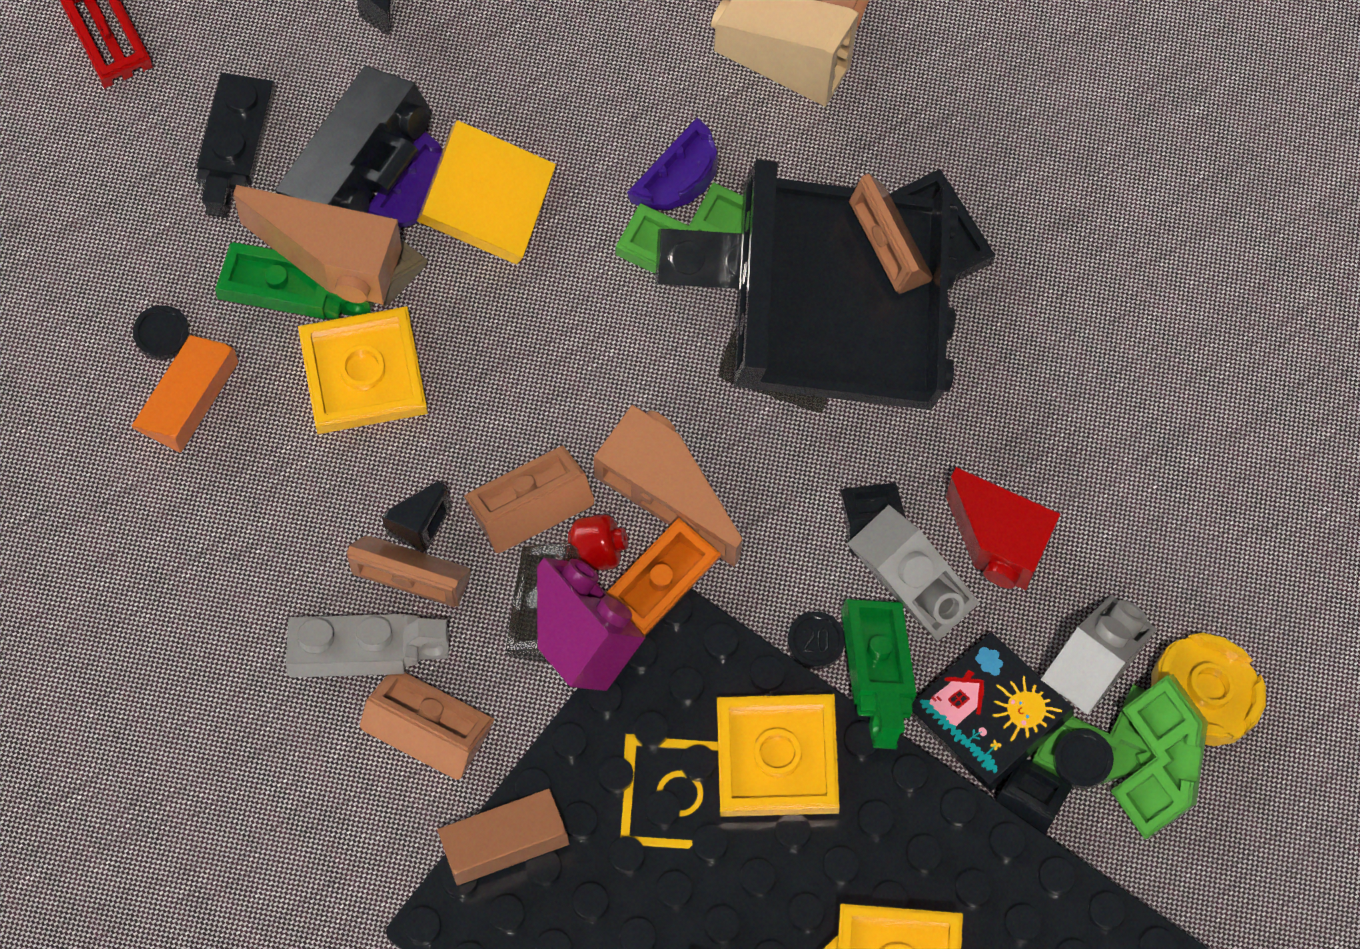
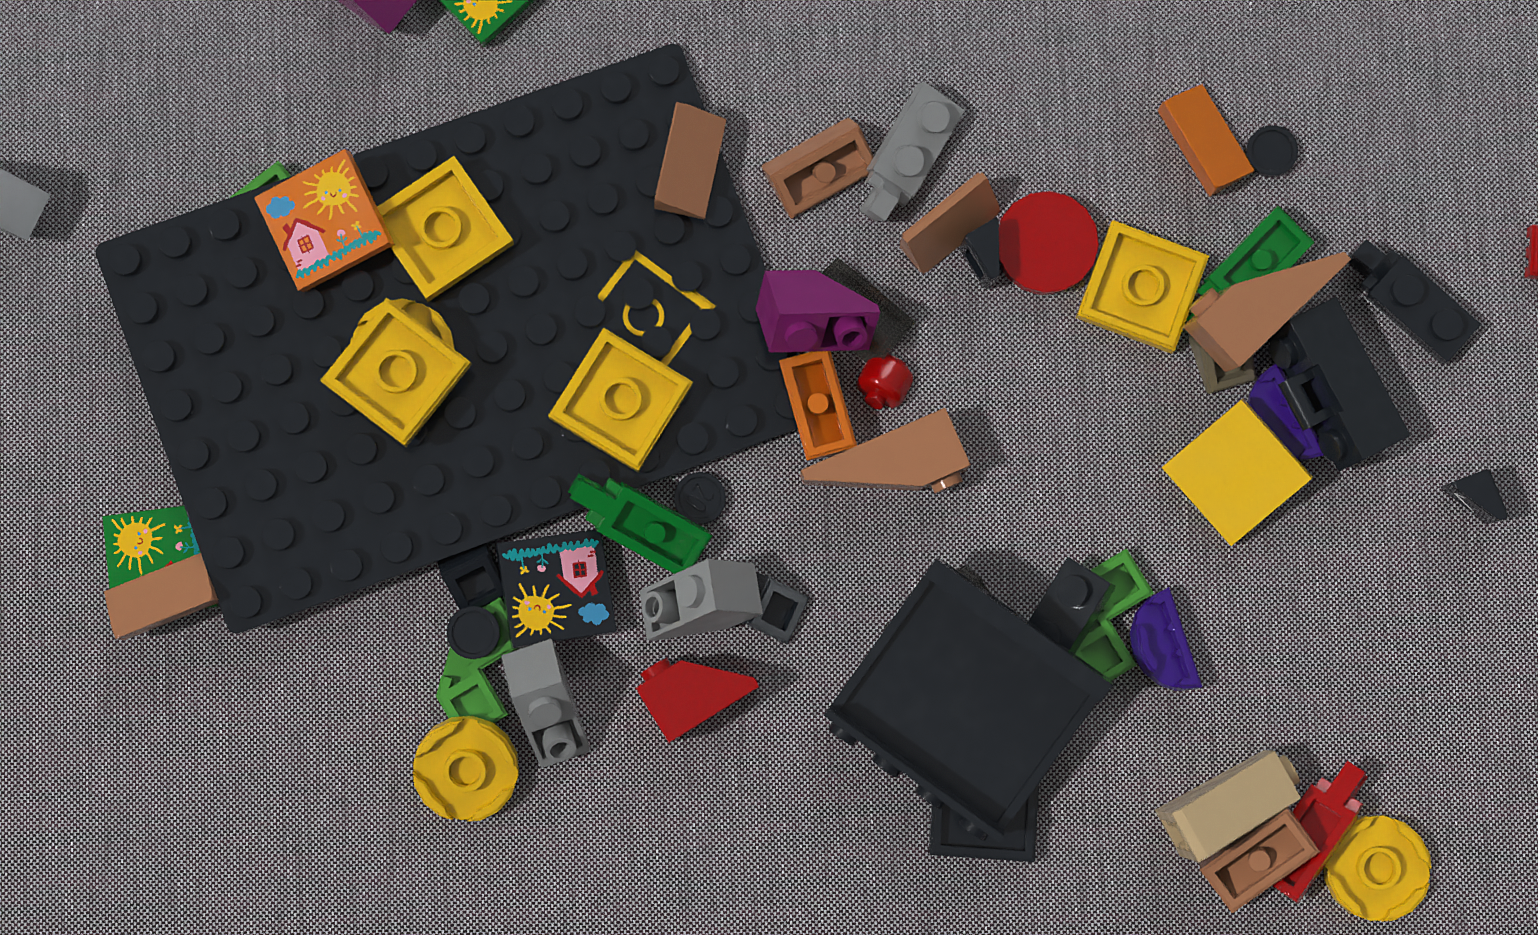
camera: 125 degrees right, 15 degrees up
(371, 470) = (1047, 243): none -> red tile
(530, 499) = (952, 351): nougat slope -> none
(889, 235) = (987, 766): nougat slope -> none
(1177, 738) = (438, 709): bright green tile -> none

